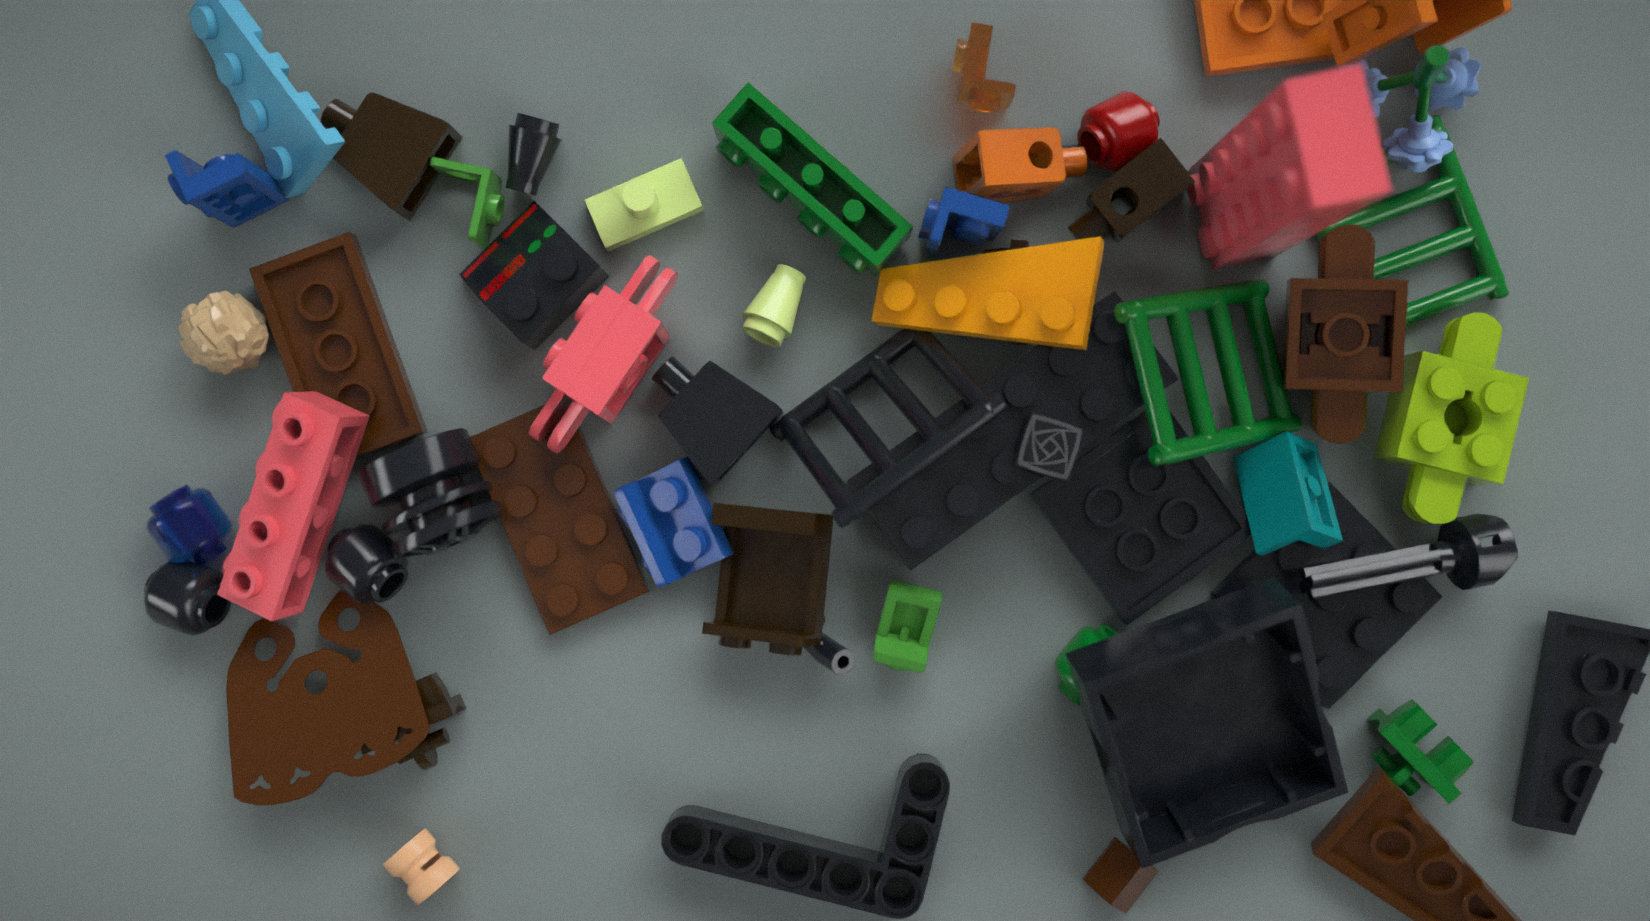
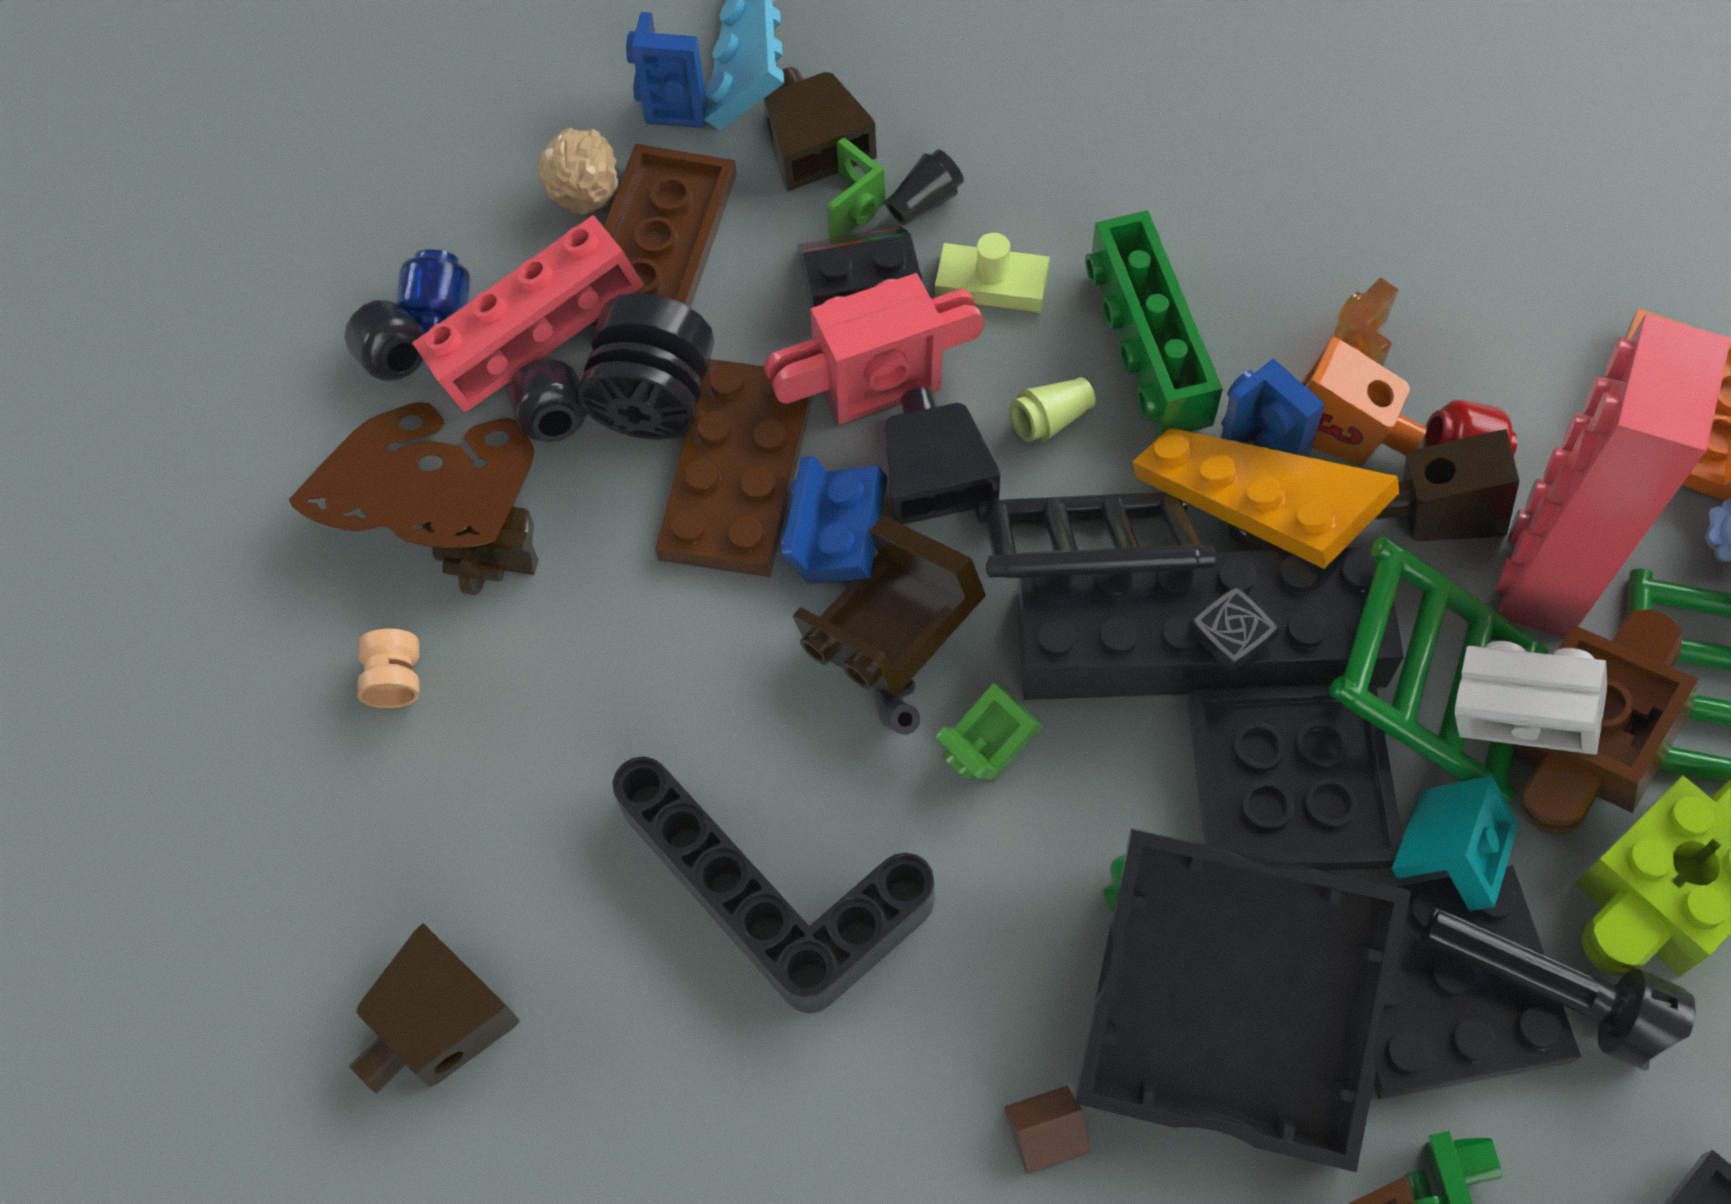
camera: 35 degrees right, 25 degrees down
(1296, 370) = (1532, 697): none -> white brick

